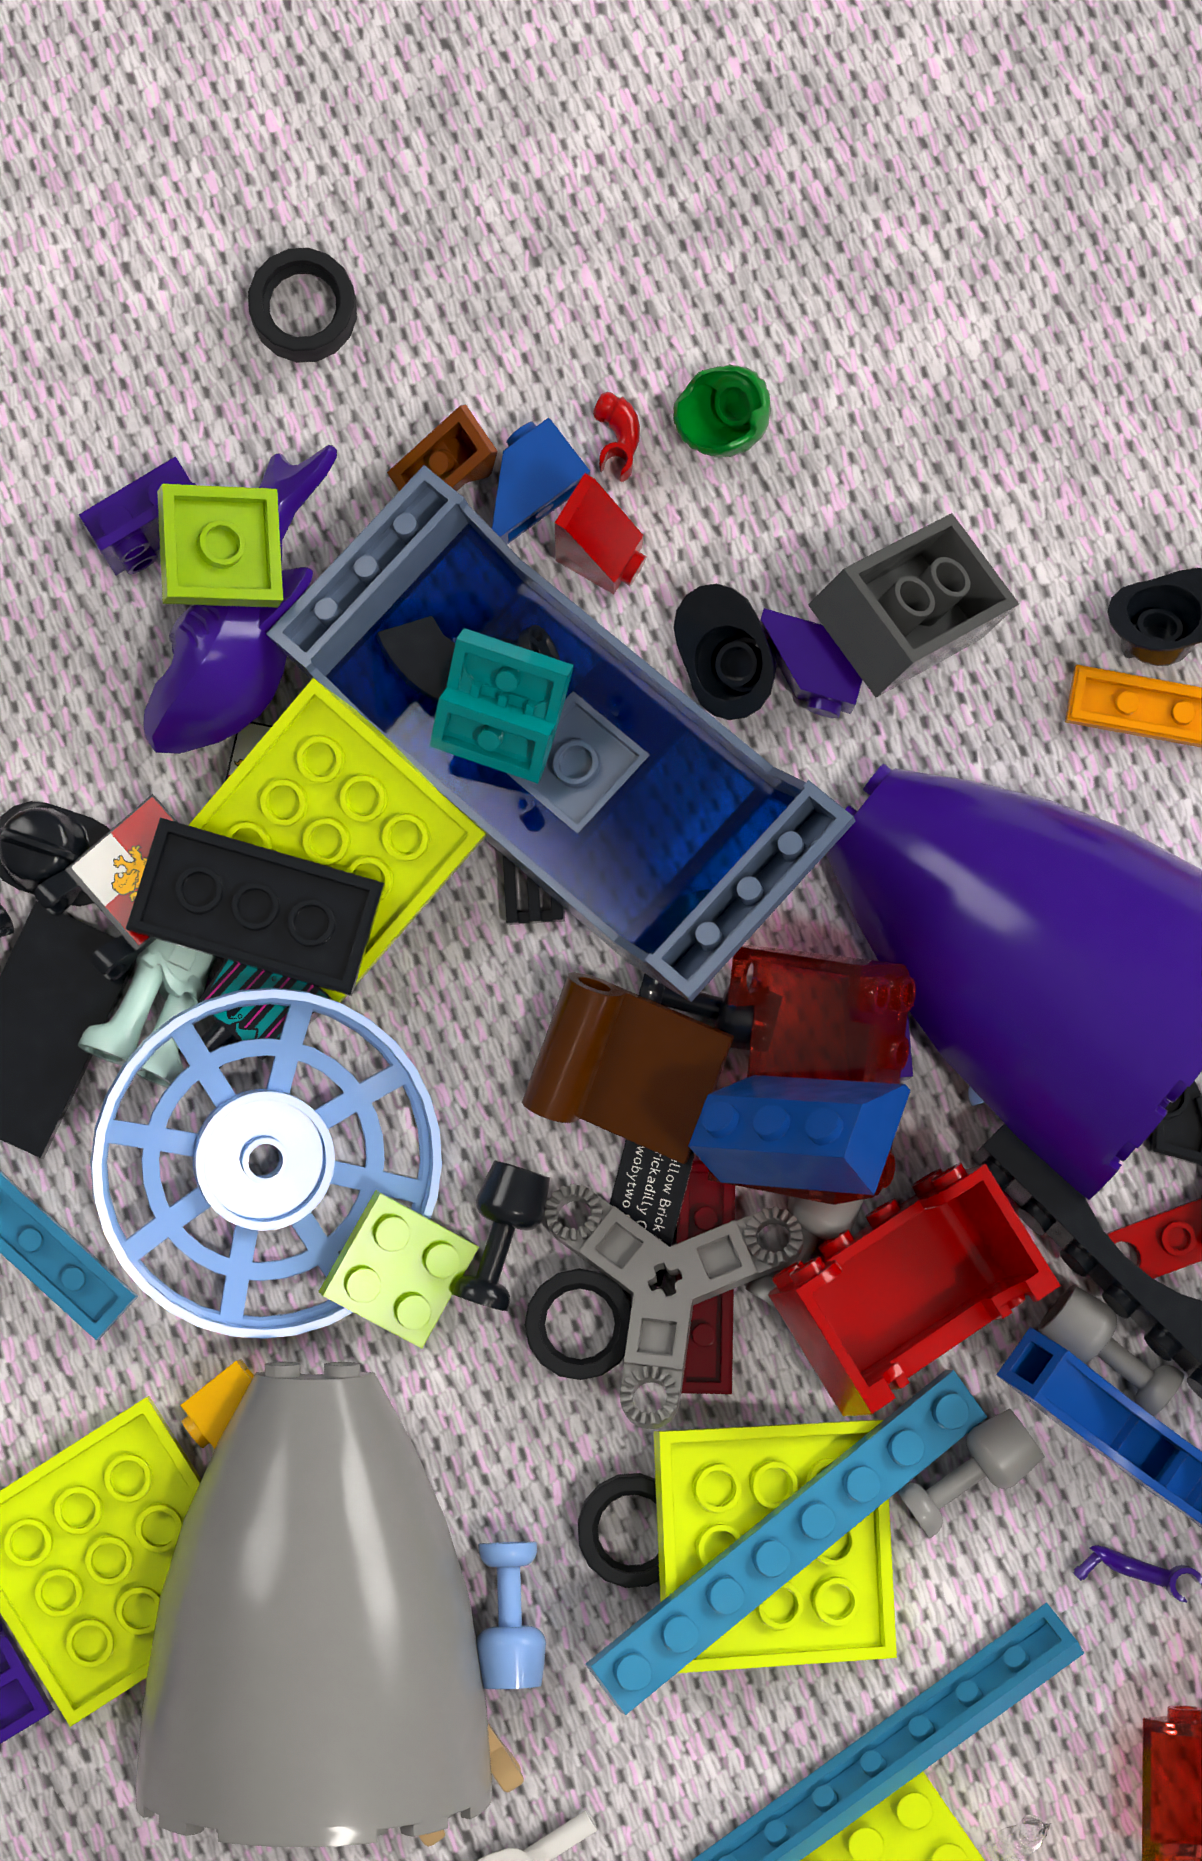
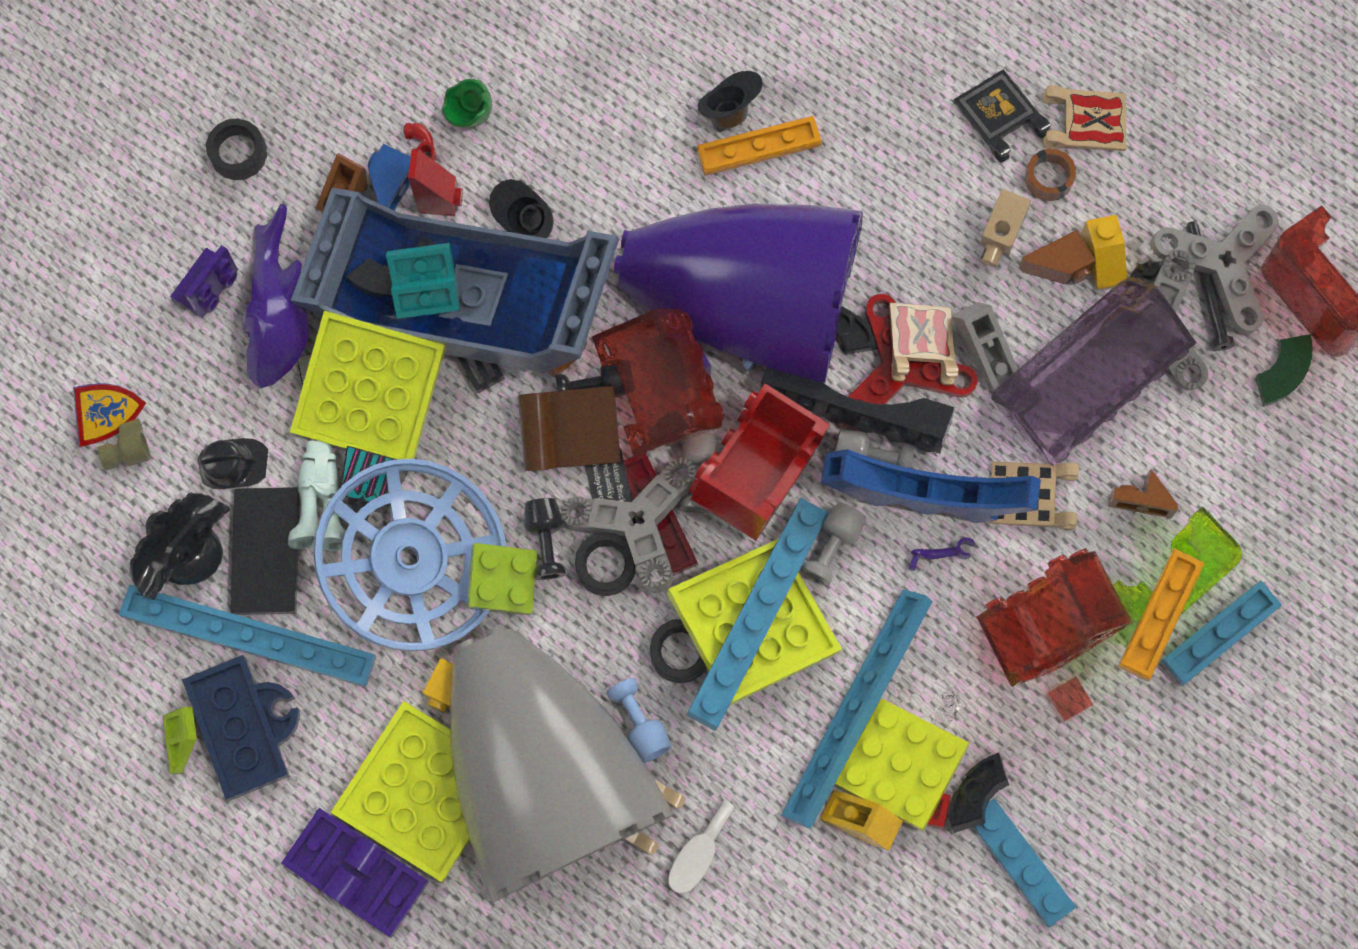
camera: 20 degrees left, 10 degrees down
(111, 879) = (282, 451): flag -> none
(219, 546) = (248, 266): lime plate -> none
(255, 906) = (346, 433): black tile -> none
(800, 1132) = (666, 407): blue slope -> none
(812, 664) = (570, 198): dark purple slope -> none
(913, 604) = (602, 147): dark grey brick -> none

